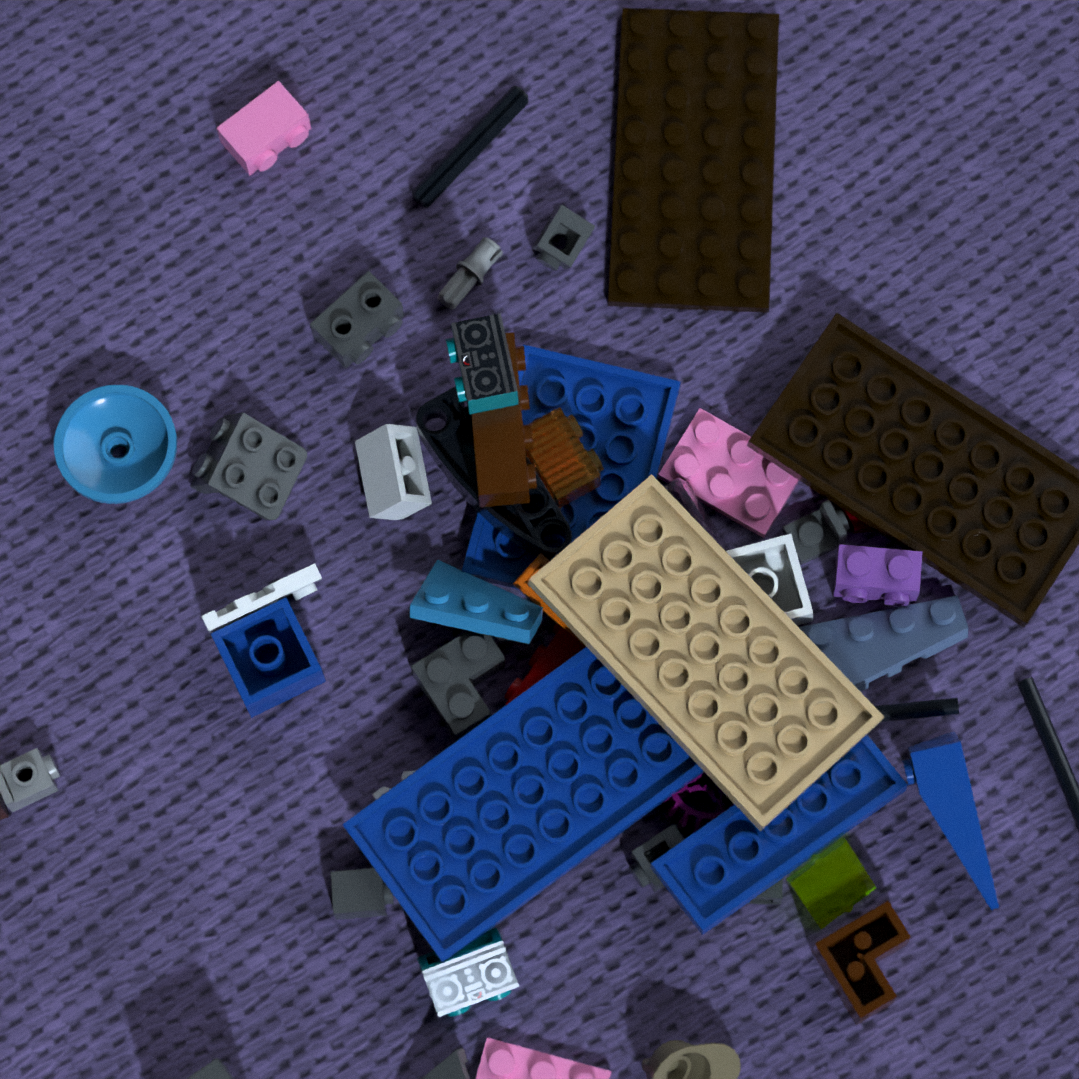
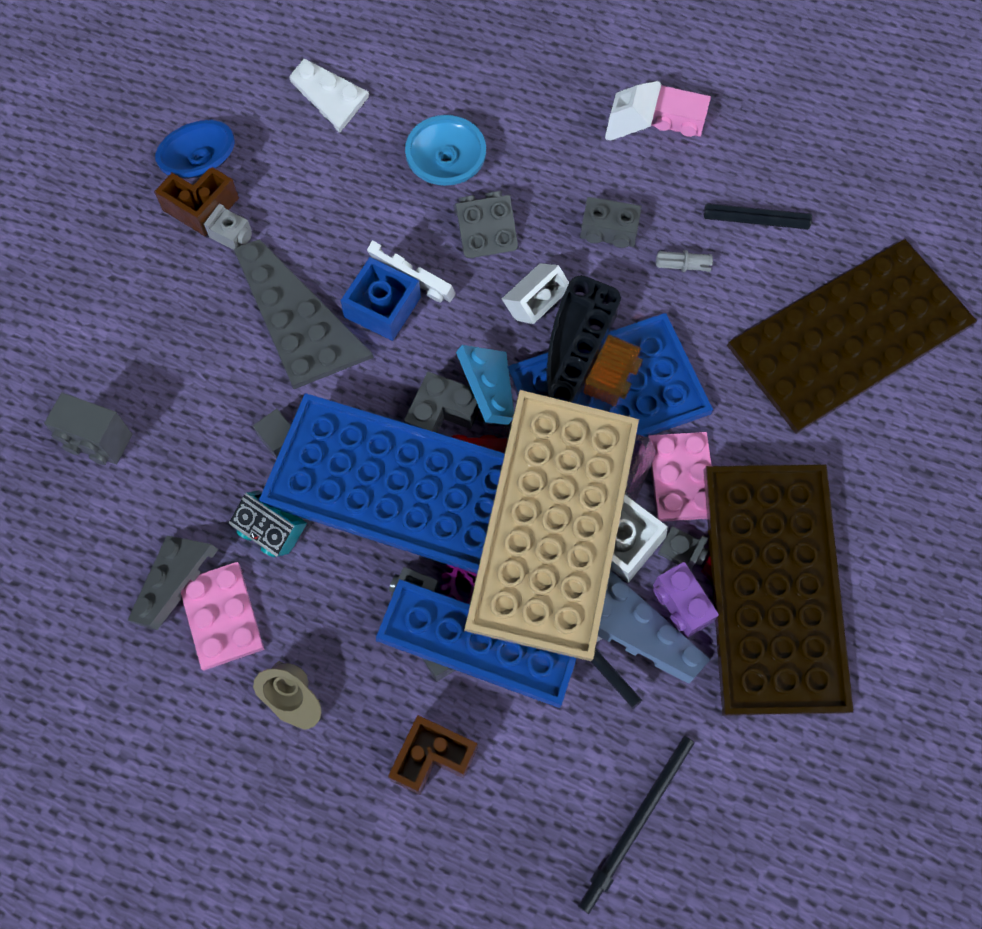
camera: 50 degrees right, 5 degrees down
(226, 184) = (633, 110): none -> white slope
(229, 777) = (302, 328): none -> dark grey wing
(484, 364) = (627, 277): brick -> none
(502, 443) = (604, 315): reddish brown brick -> none
(573, 229) = (751, 285): dark grey brick -> none
(831, 883) = (468, 701): clear neon green piece -> none
(945, 787) = (578, 728): blue wedge -> none

